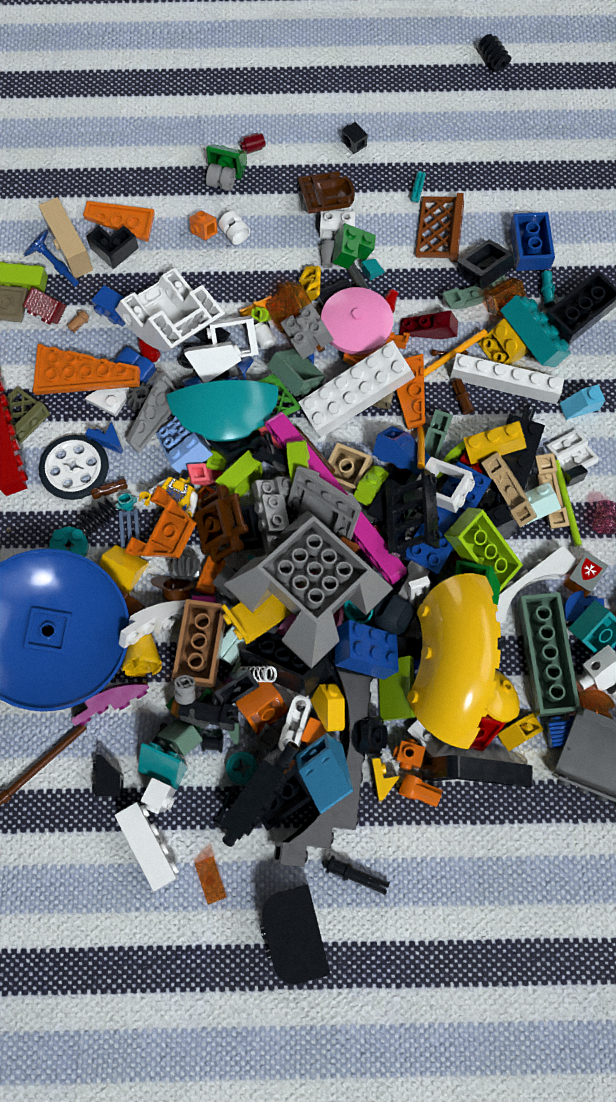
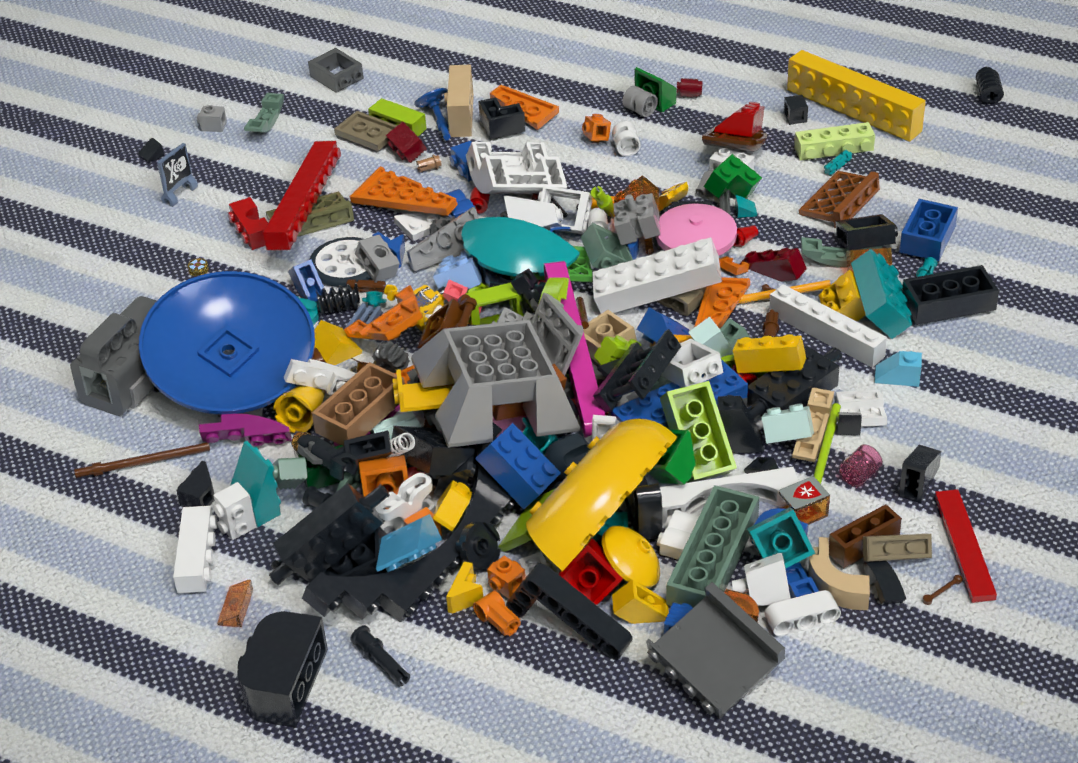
camera: 30 degrees right, 30 degrees down
(57, 508) = (306, 280): none -> blue slope
(94, 458) = (377, 258): none -> light grey brick
(184, 689) = (317, 421): light grey wheel -> none
(323, 173) = (743, 122): none -> red slope
(398, 105) = (856, 95): none -> yellow brick
(405, 164) = (834, 140): none -> yellowish green brick
(440, 446) = (711, 336): none -> light aqua brick
(510, 489) = (761, 392): tan slope -> none
(515, 651) = (677, 533): none -> white brick
(531, 548) = (761, 464): none -> black slope

